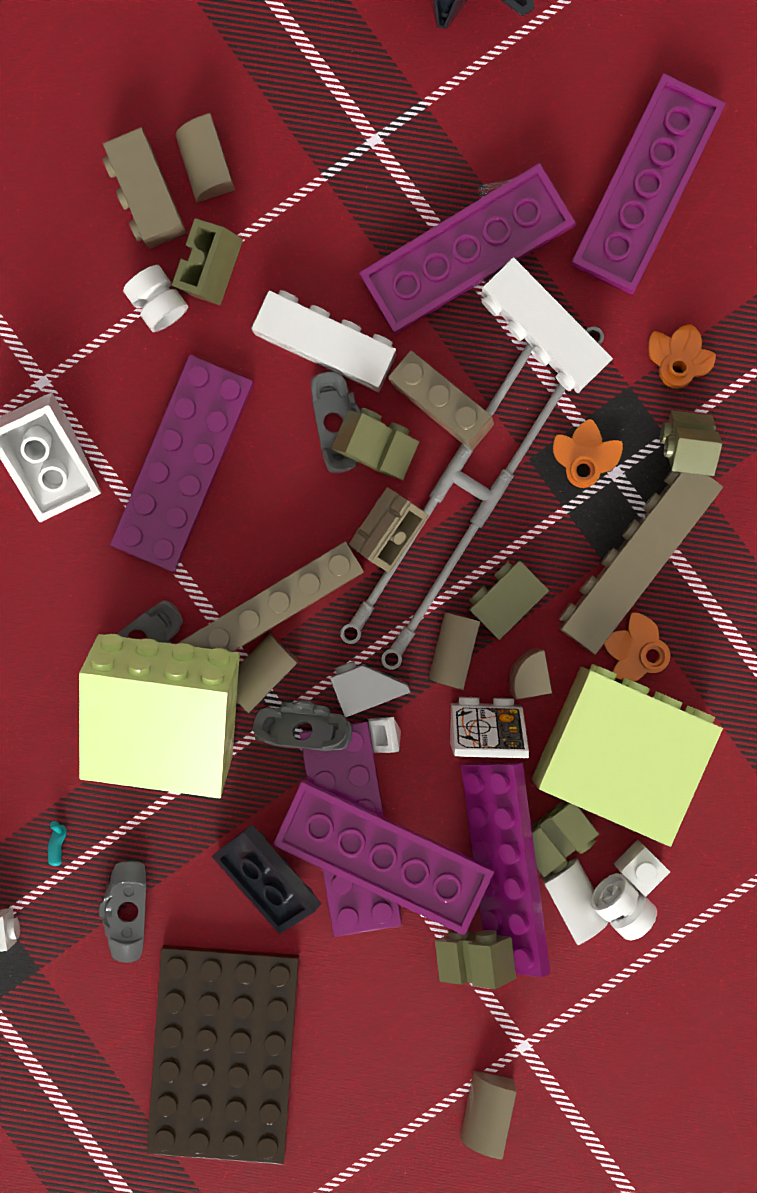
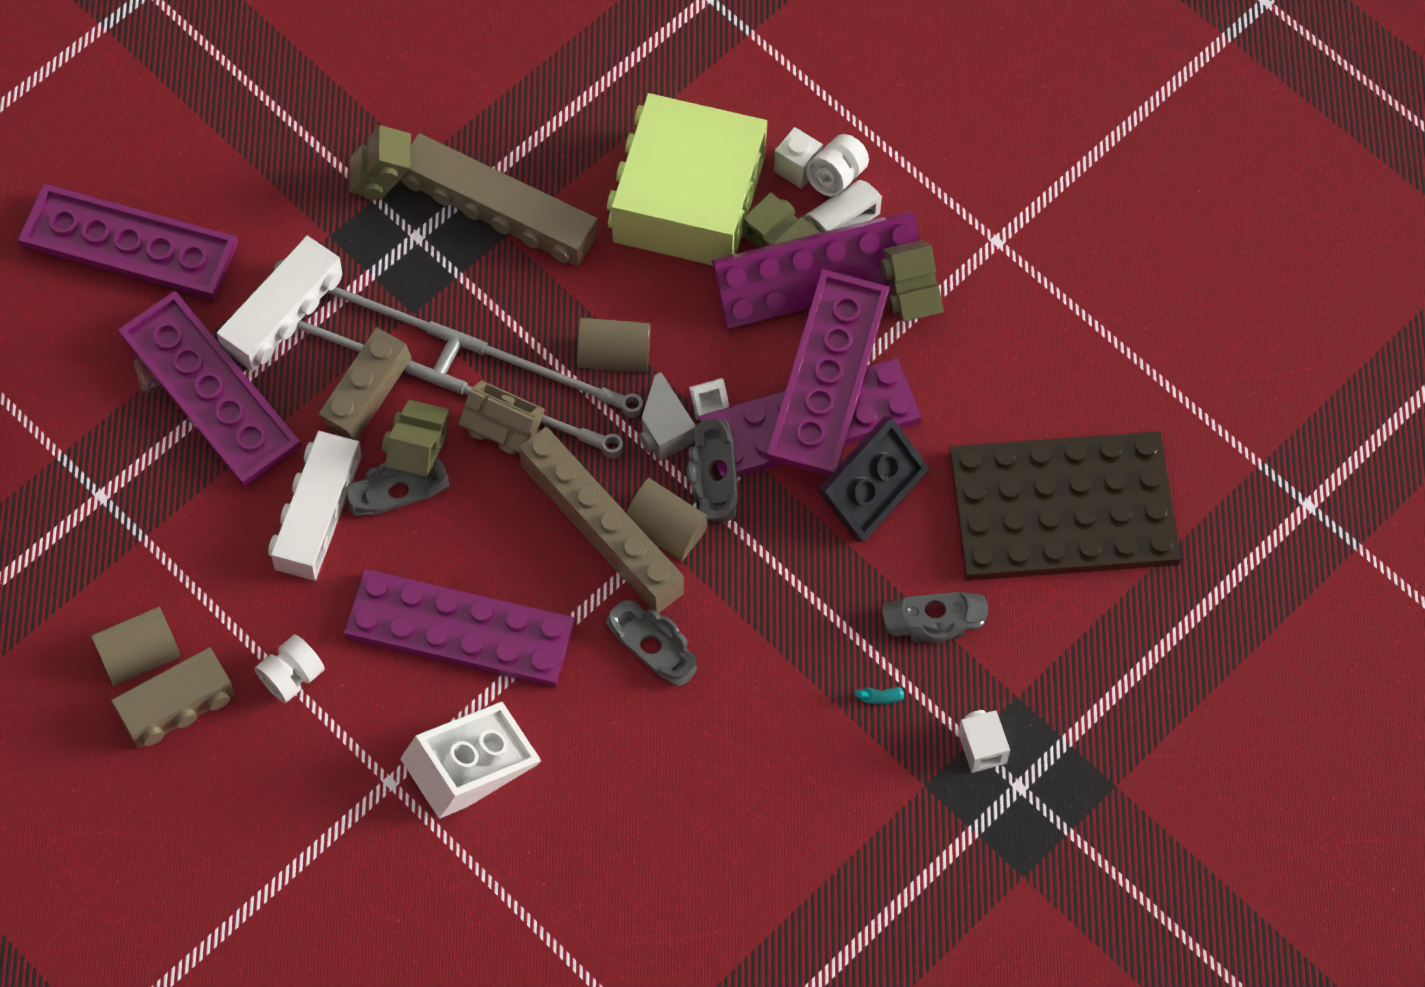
camera: 100 degrees left, 25 degrees down
(157, 715) = (721, 582): yellowish green brick -> none
(209, 263) = (263, 622): olive brick -> none
(488, 728) = (684, 298): white slope -> none
(488, 1114) = (1066, 257): dark tan brick -> none
(507, 599) = (554, 304): olive brick -> none
(529, 675) = (625, 270): dark tan brick -> none
(587, 450) = (397, 261): orange plate -> none
(632, 646) = (585, 195): orange plate -> none
(680, 351) = (293, 194): orange plate -> none

